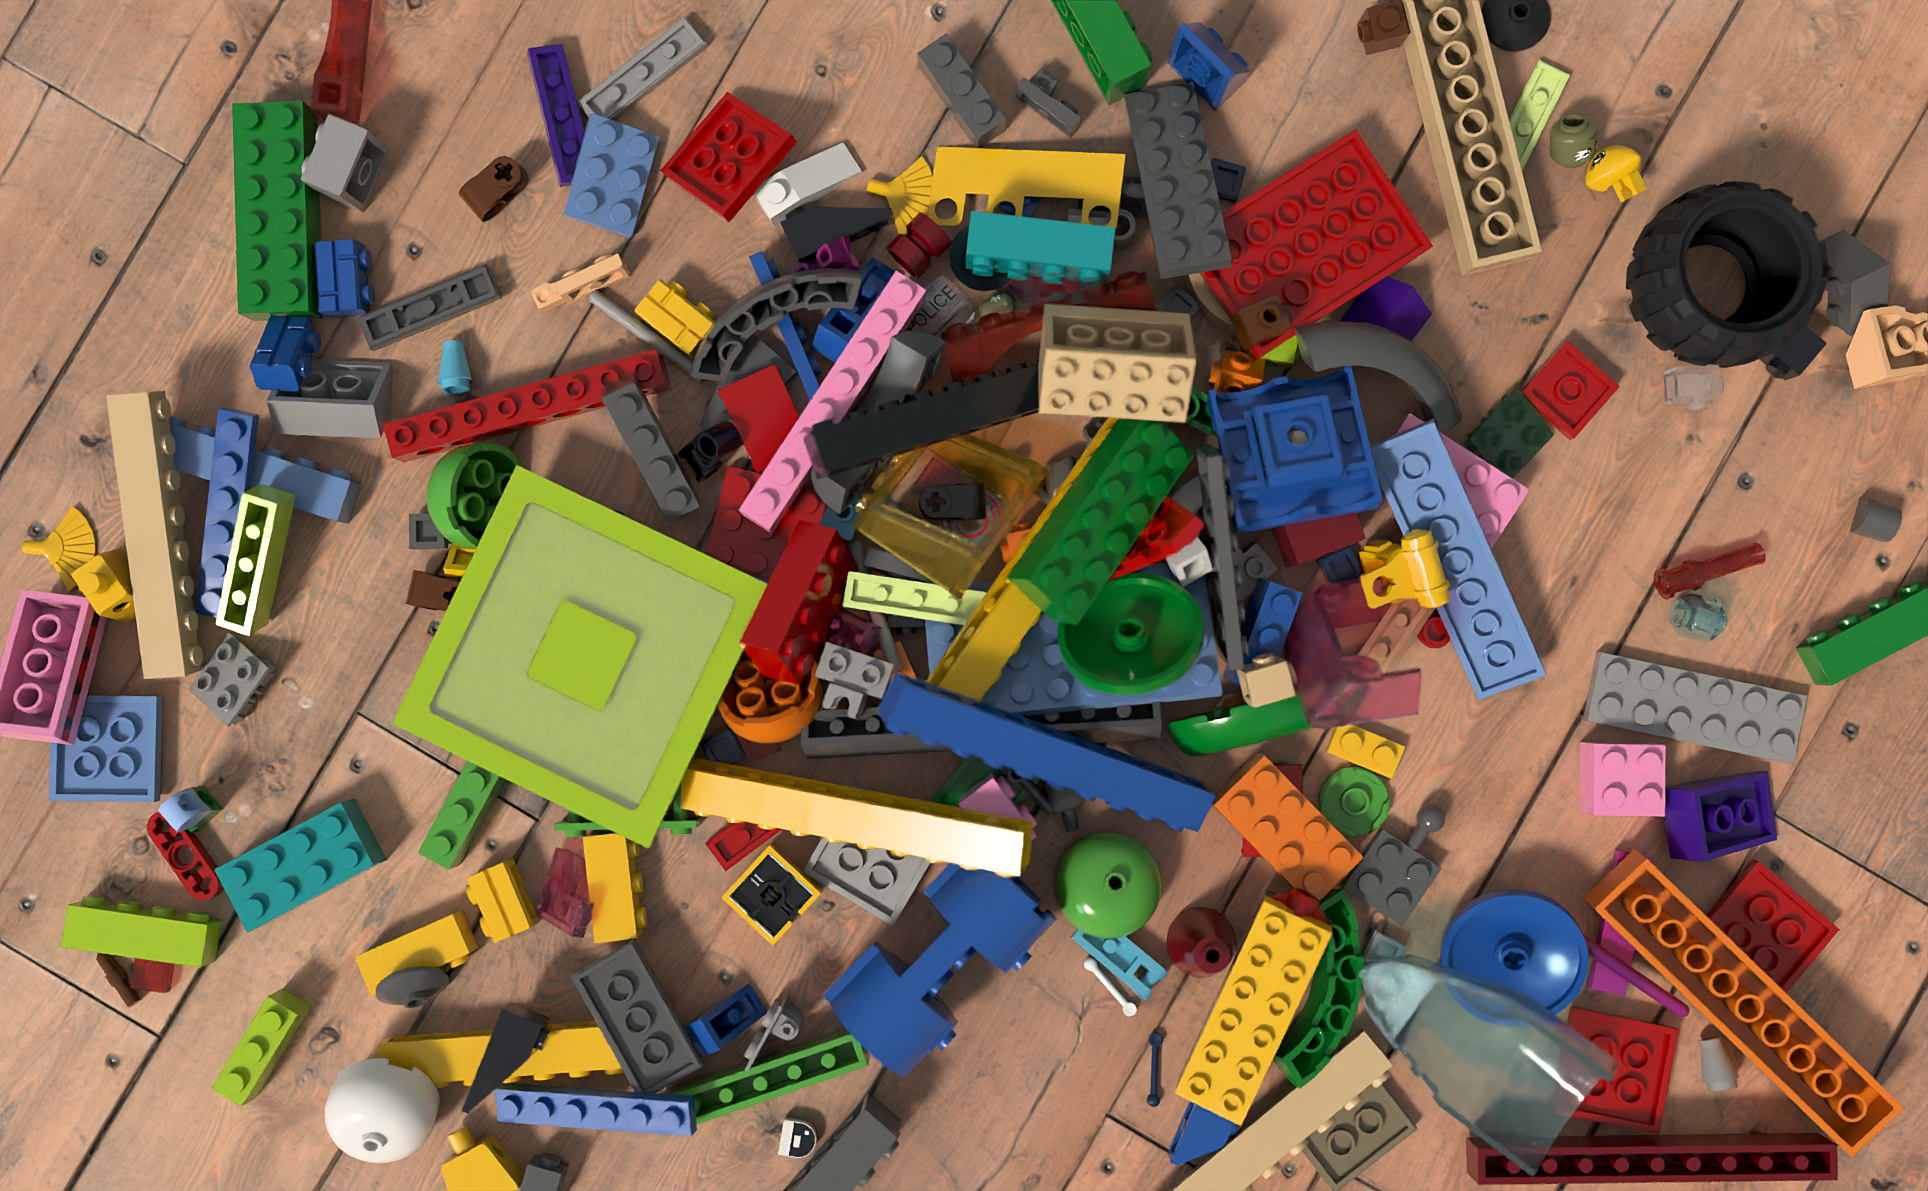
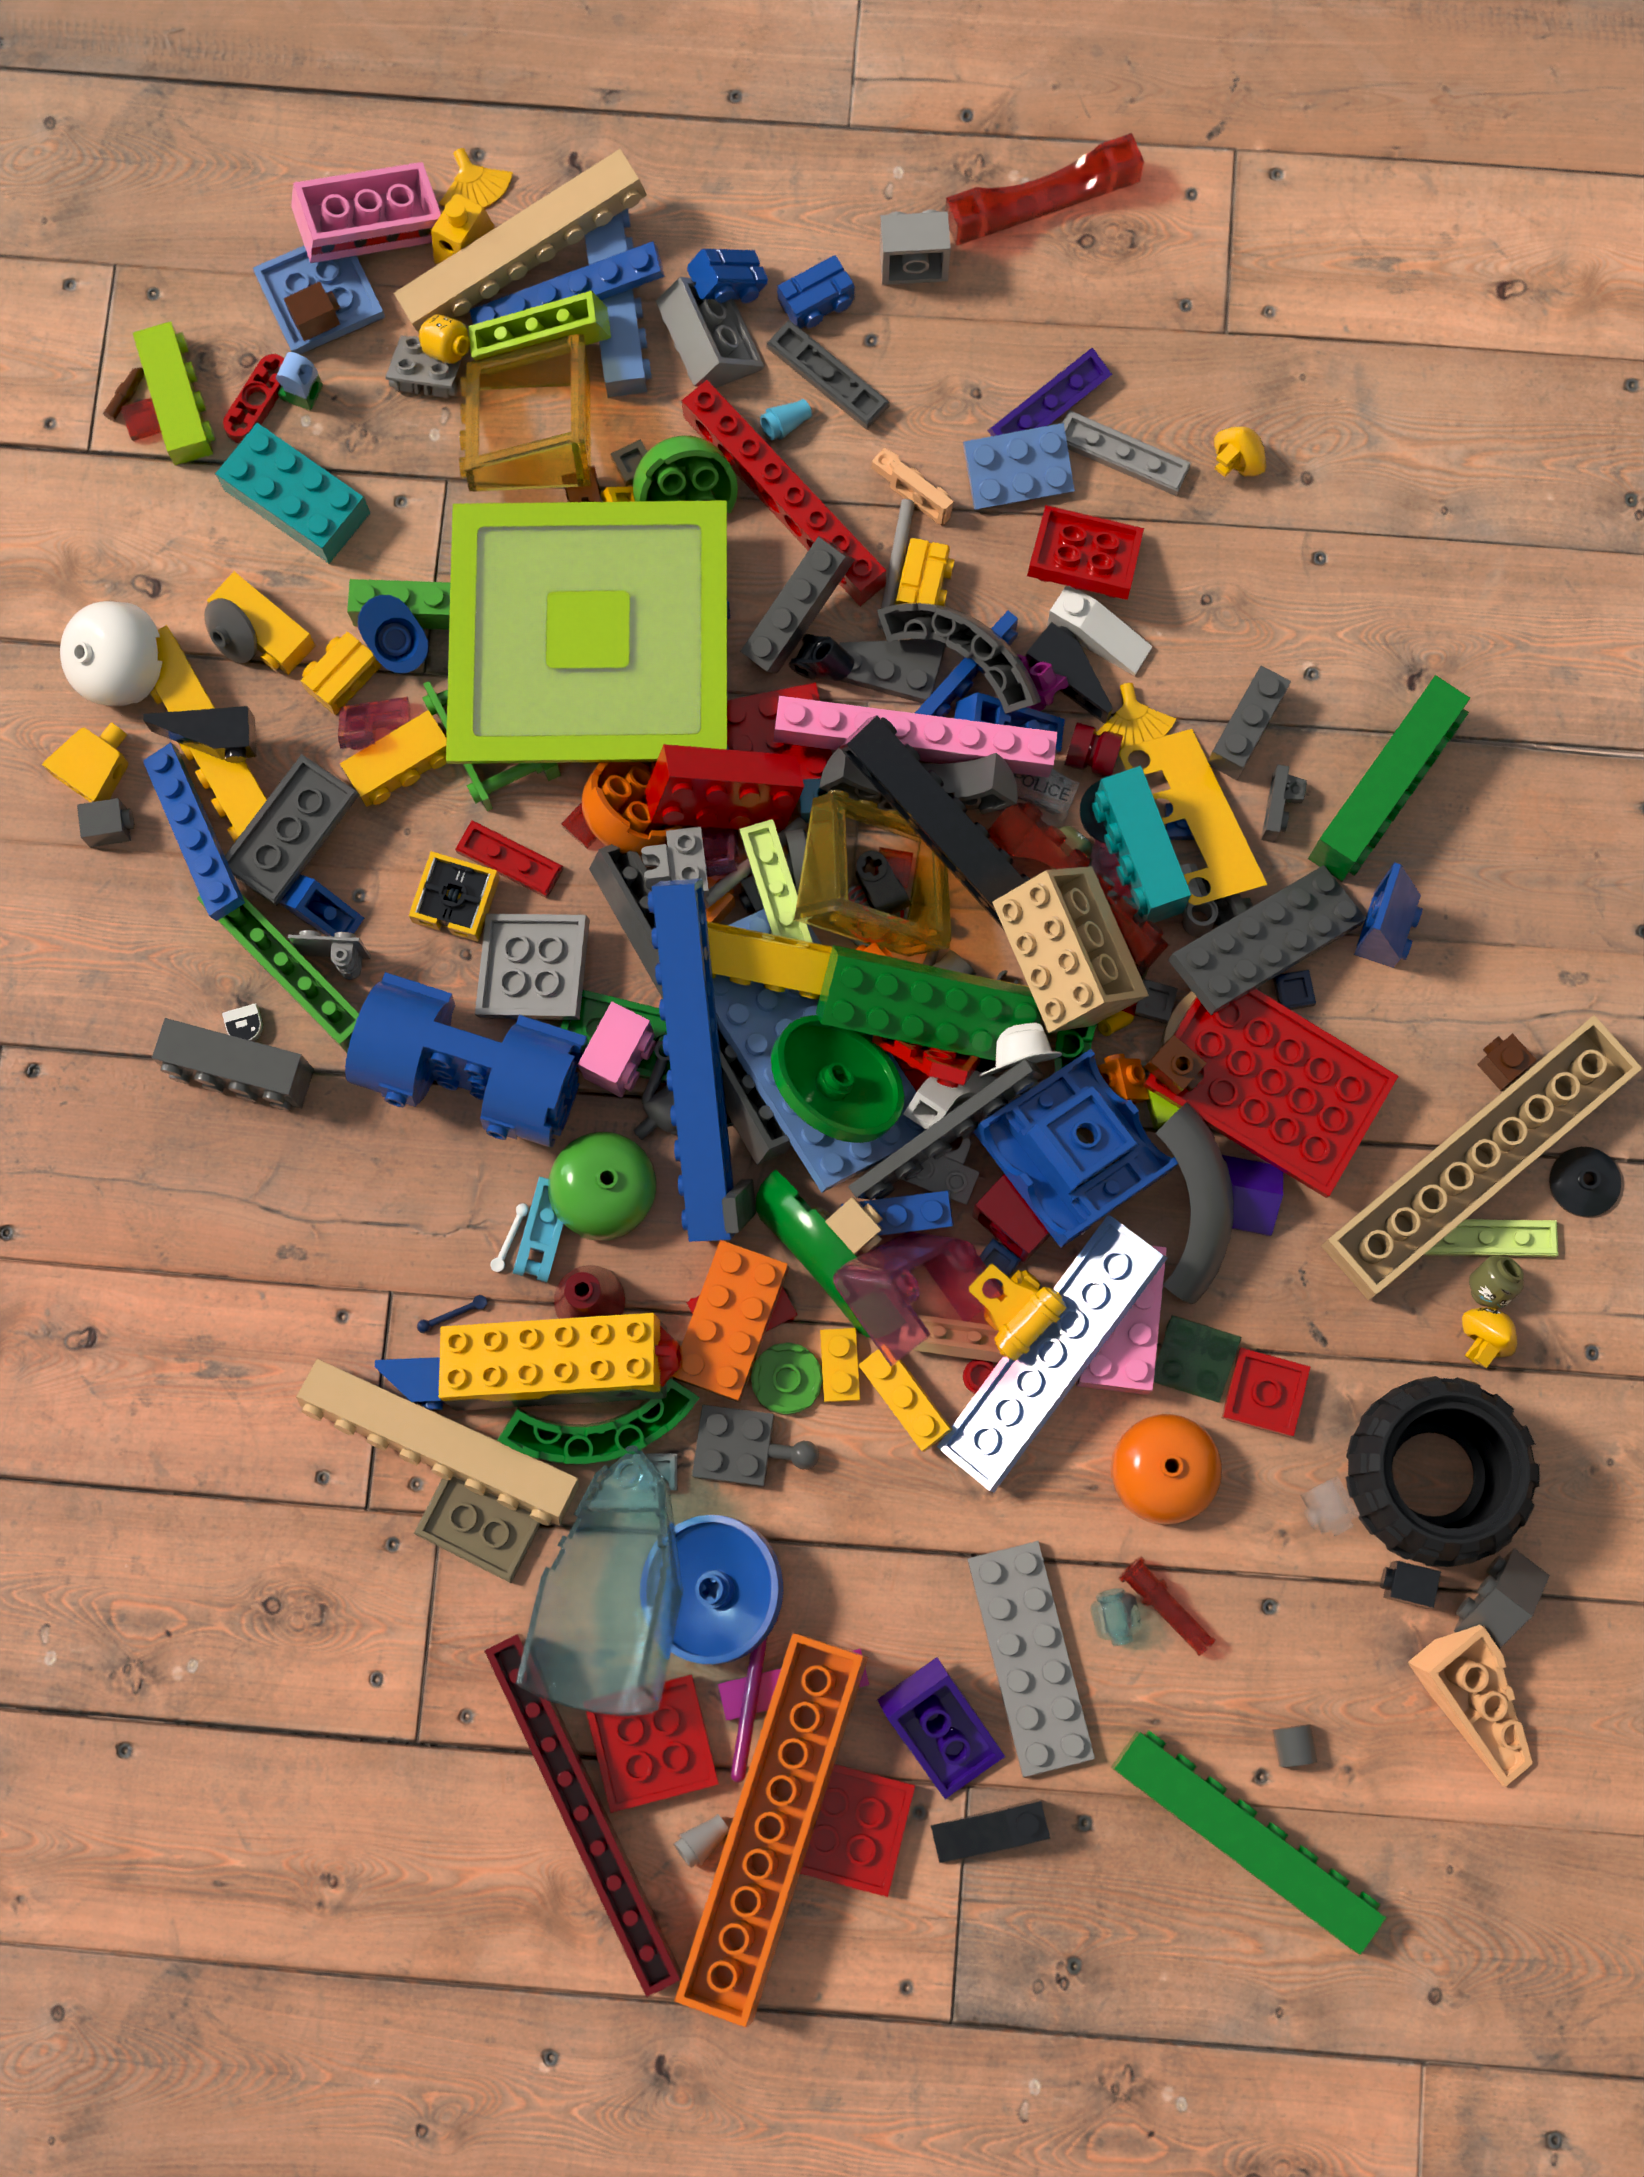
camera: 65 degrees right, 10 degrees down
(125, 765) = (313, 310): none -> reddish brown brick
(216, 652) = (444, 339): none -> yellow head
(261, 1047) = (119, 534): lime brick -> none
(275, 210) = (844, 212): green brick -> none
(393, 621) = (543, 463): none -> clear yellow windscreen
(490, 190) = (956, 378): reddish brown piece -> none
(492, 837) = (392, 634): none -> blue piece
(723, 747) = (561, 797): dark blue tile -> none
(761, 413) = (879, 680): red piece -> none
(858, 816) = (559, 926): yellow brick -> none
(1186, 456) = (1021, 1043): none -> white piece
(1189, 773) = (739, 1206): none -> dark grey tile
(1437, 705) = (906, 1400): none -> yellow plate
(1579, 520) = (1145, 1483): none -> orange cylinder
(1622, 778) = (929, 1615): bright pink brick -> none
(1826, 812) = (990, 1831): none -> black slope

